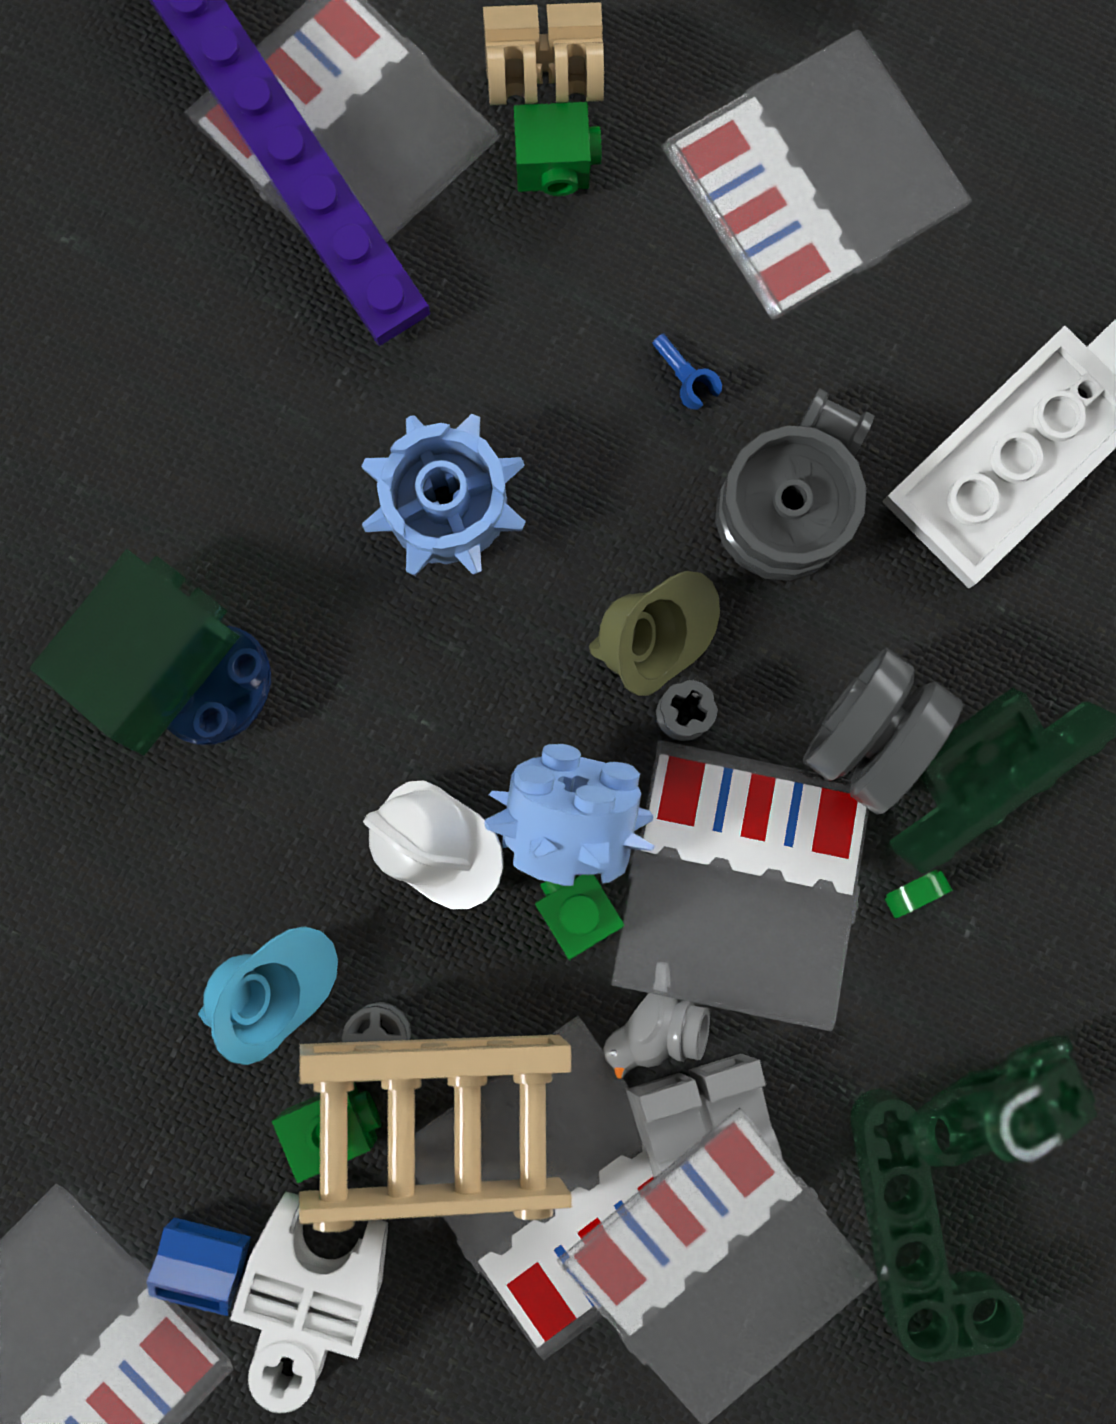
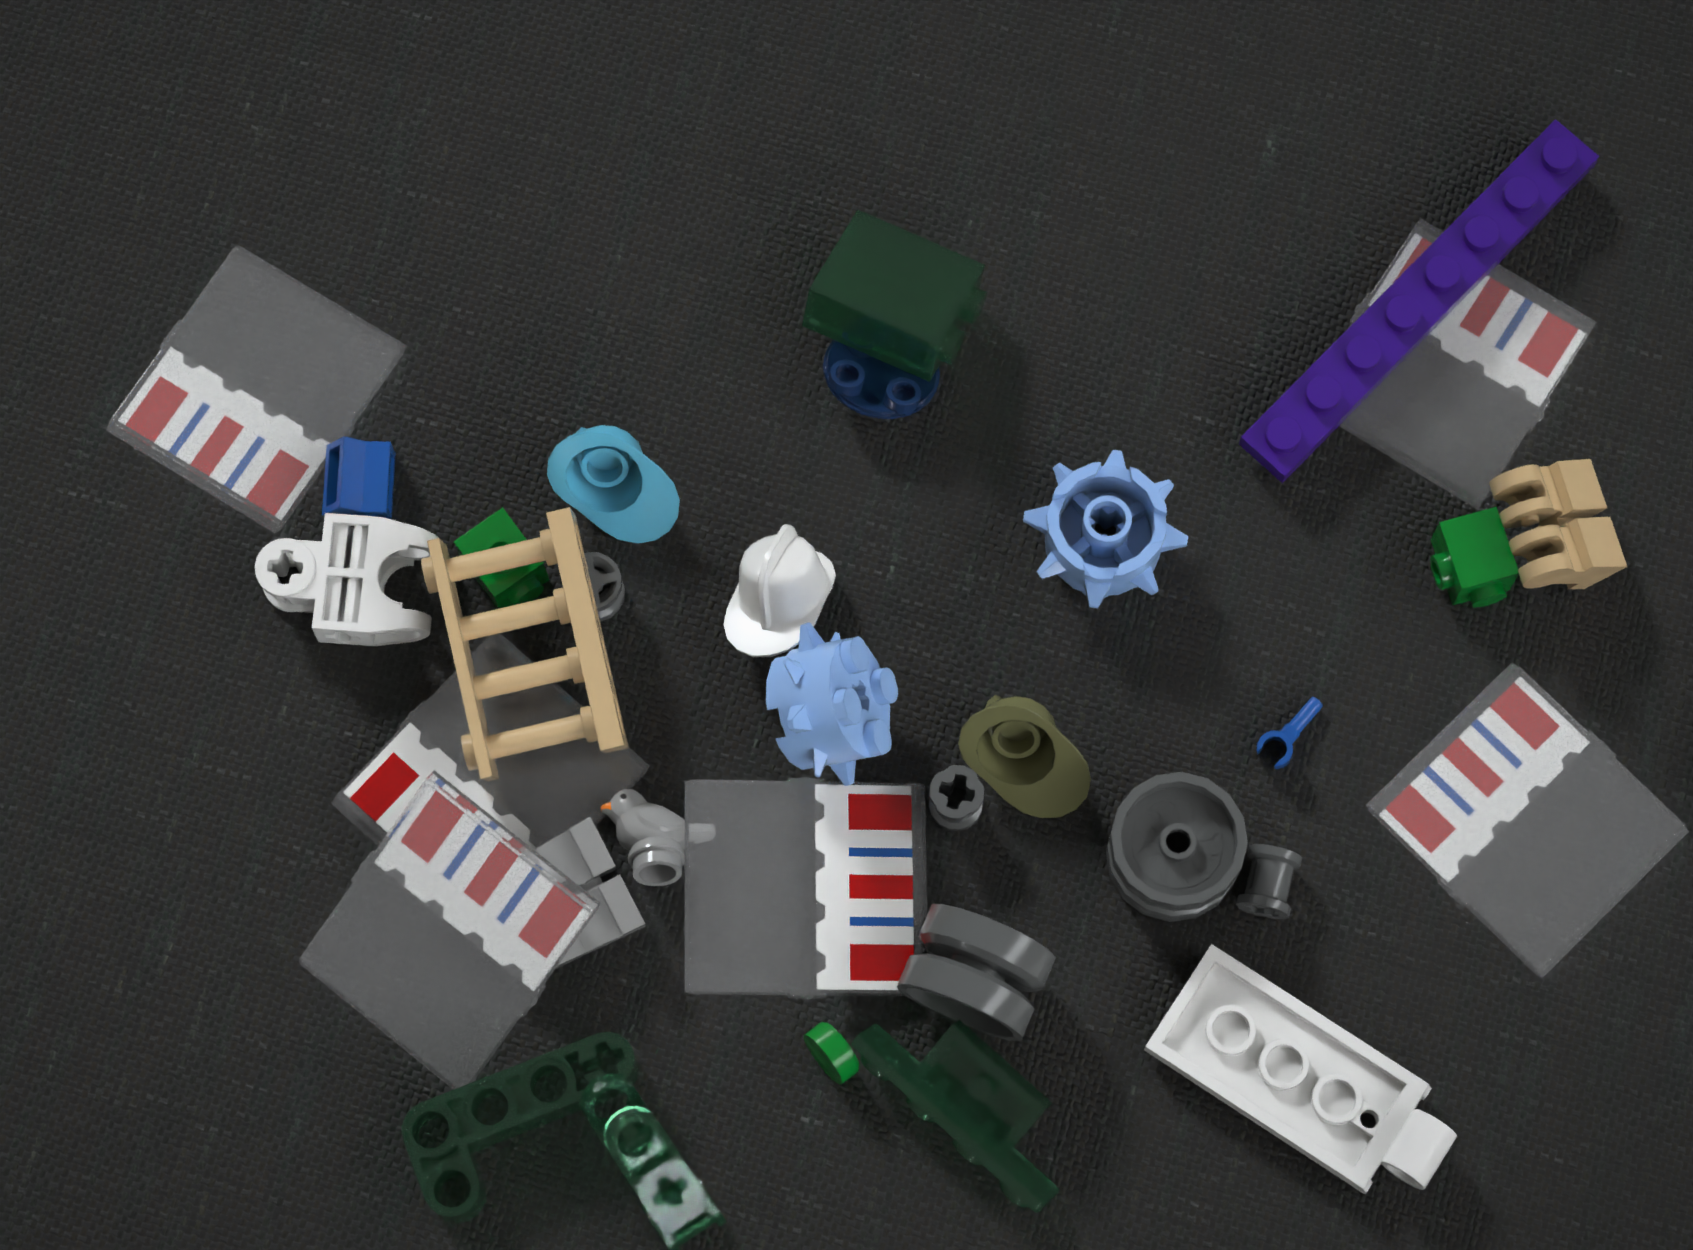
camera: 85 degrees right, 10 degrees down
(578, 913) = (744, 736): green brick -> none

